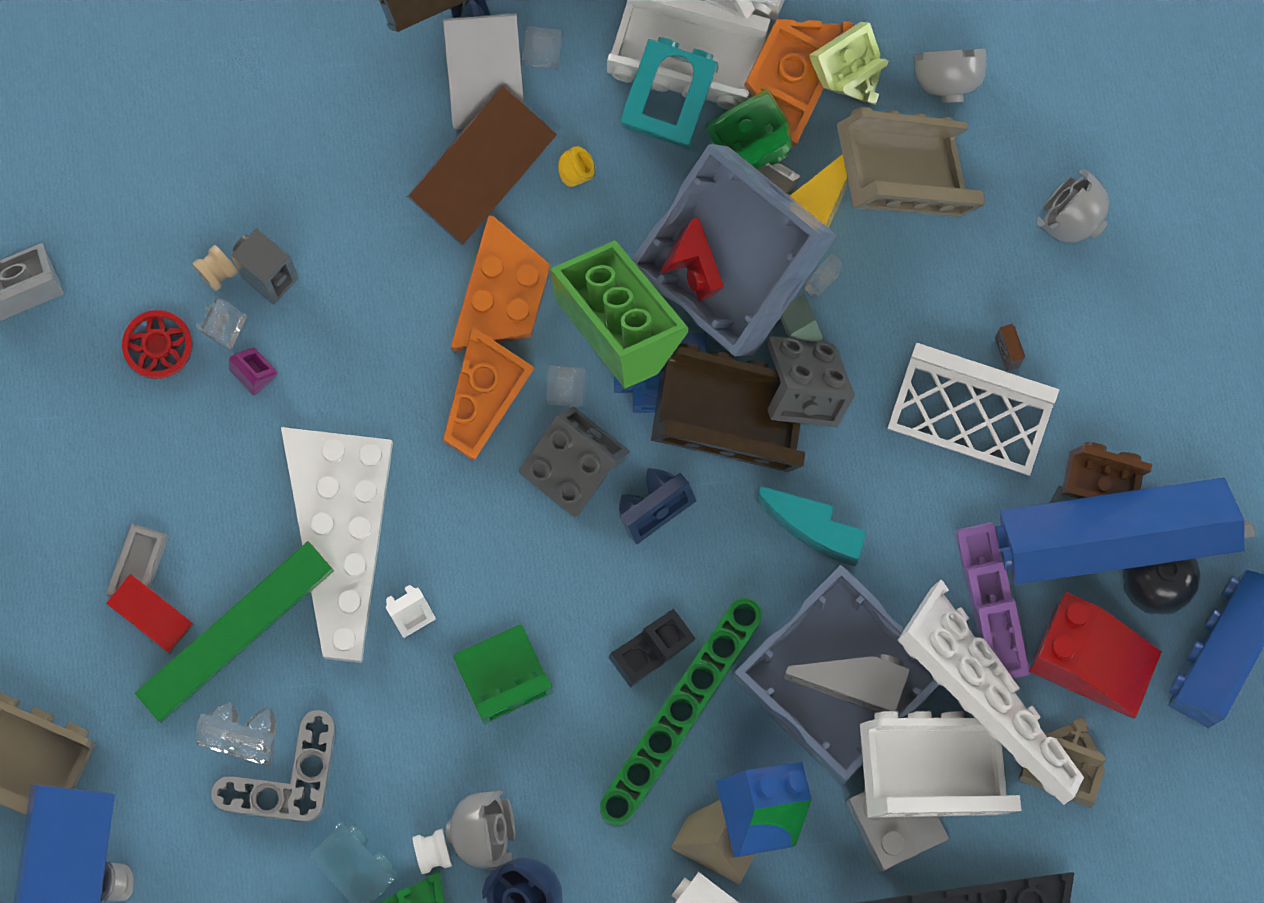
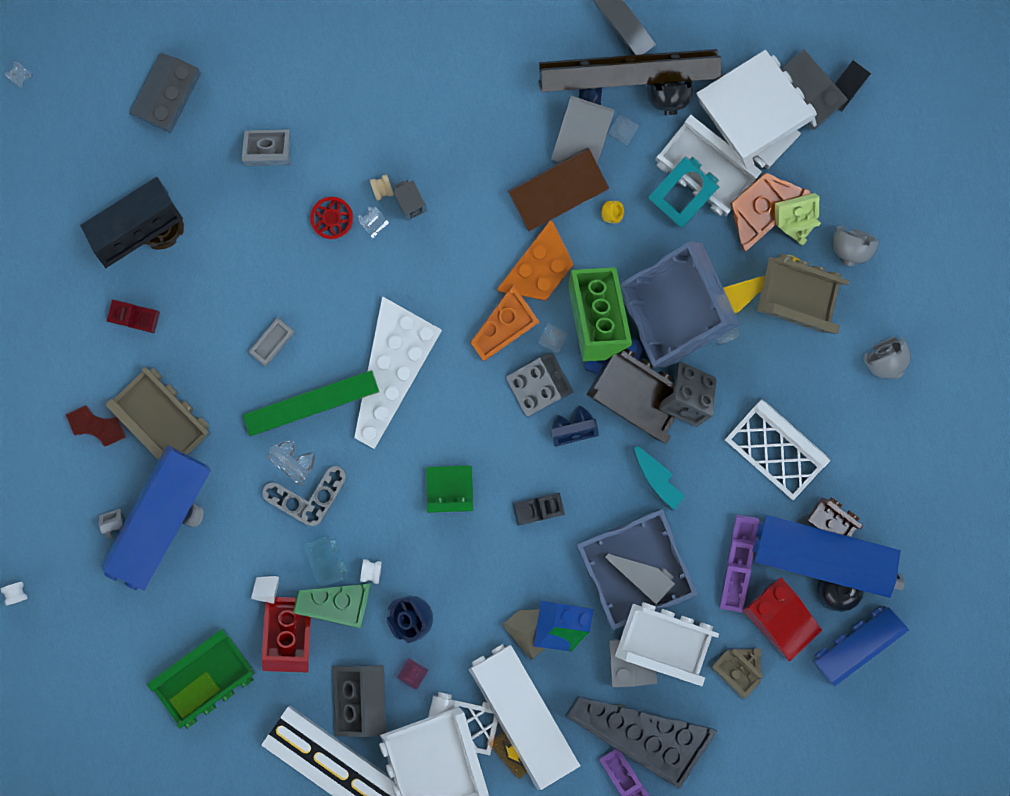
camera: 25 degrees right, 10 degrees up
(149, 613) = (268, 373): red slope -> none
(251, 370) = (379, 255): magenta slope -> none
(410, 611) = (412, 432): white tile -> none
(481, 829) = (402, 571): light grey cylinder -> none
(685, 693) = (546, 542): green beam -> none
(694, 253) = (656, 295): red slope -> none
(754, 130) = (722, 237): green bracket -> none
(780, 176) = (726, 266): white tile -> none
(800, 321) = (702, 359): sand green slope -> none
(986, 690) = (711, 611): white wing -> none
(1010, 347) = (814, 422): reddish brown tile -> none

